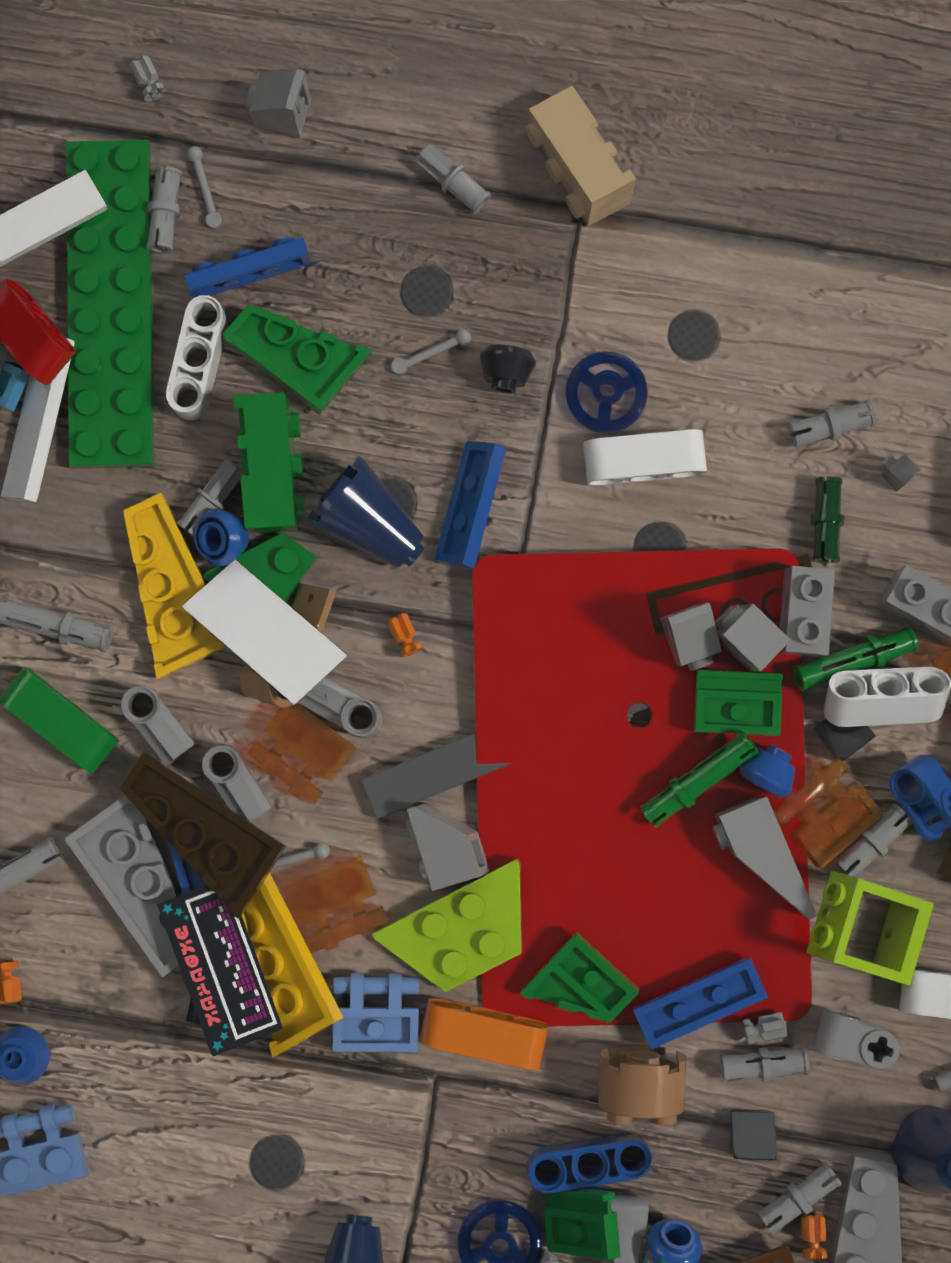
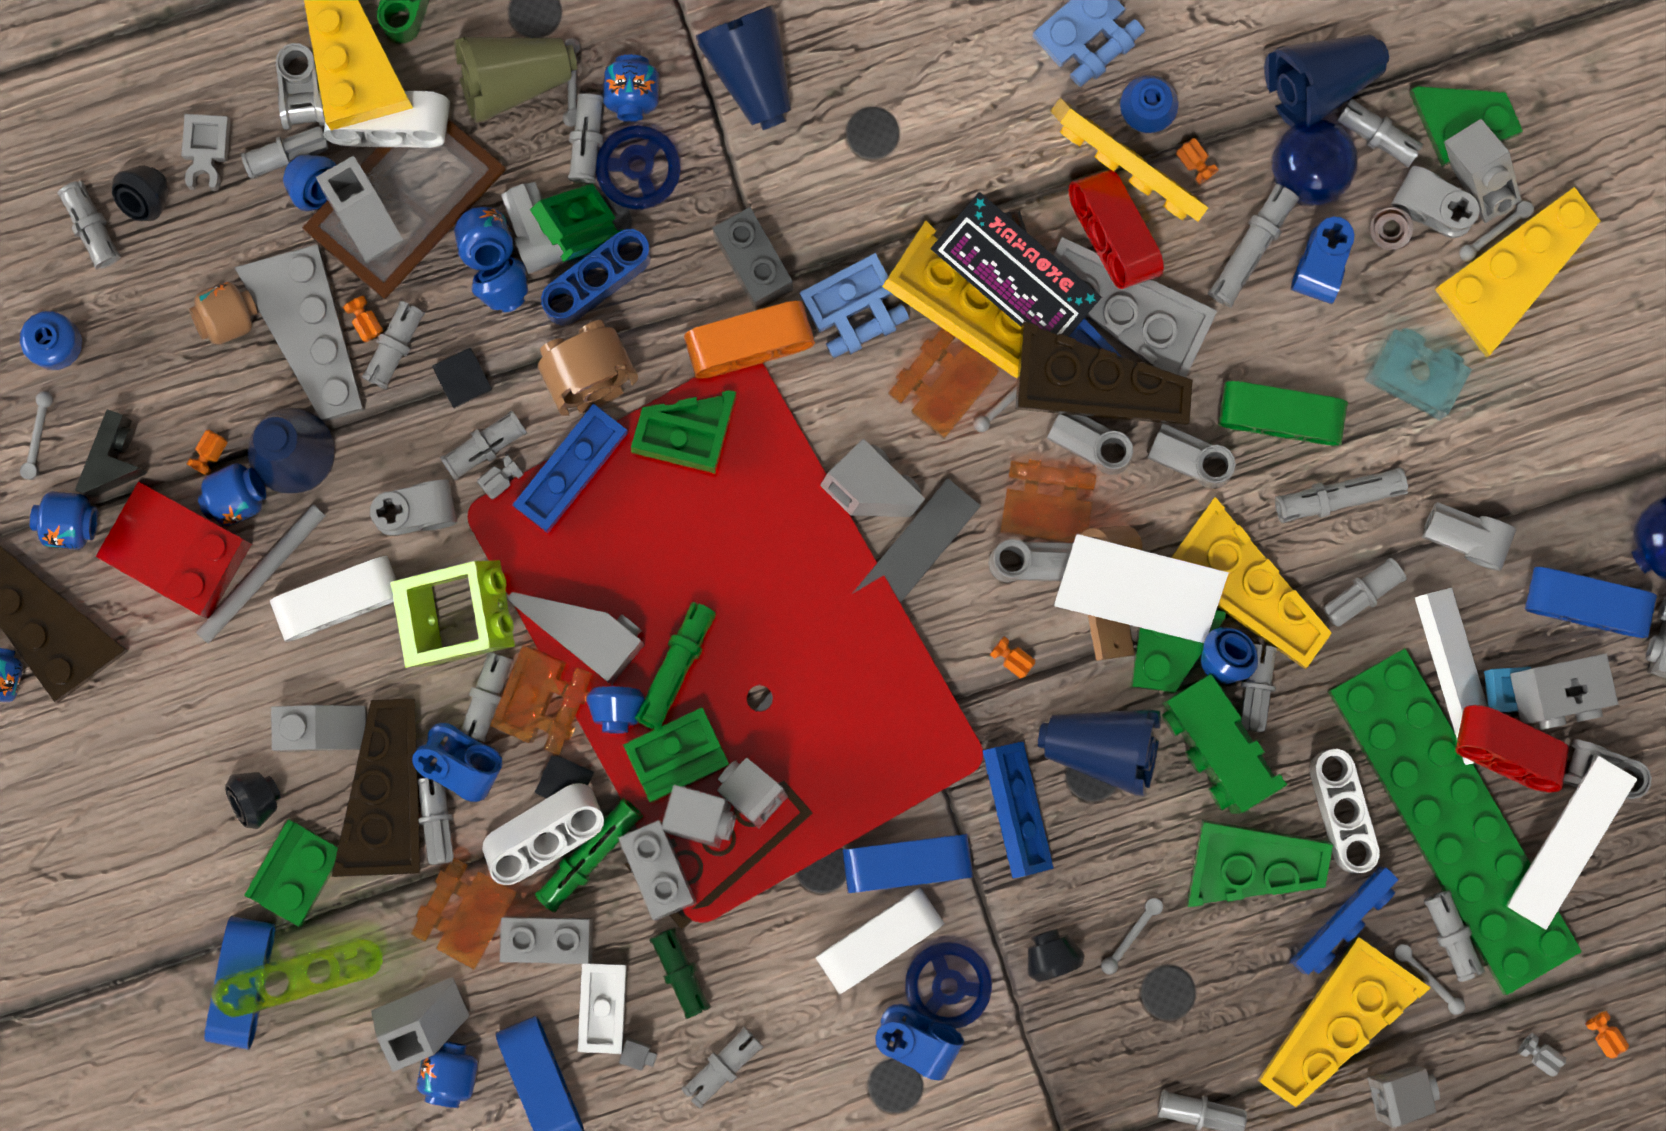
camera: 150 degrees right, 0 degrees up
(72, 1024) = (1112, 154): none -> yellow wing
(75, 531) = (1364, 592): none -> light grey axle
(84, 63) = (1609, 1038): none -> orange piece
(111, 958) = (1116, 229): none -> red beam
(291, 194) = (1346, 1013): none -> yellow wing
(442, 1105) = (753, 258): none -> dark grey brick
(462, 930) = (817, 419): lime wing -> none
(587, 508) = (907, 863): none -> blue beam
(657, 354) = (922, 1042): none -> blue piece
(677, 1199) = (503, 286): none -> blue cone
(908, 524) = (602, 1008): none -> white plate

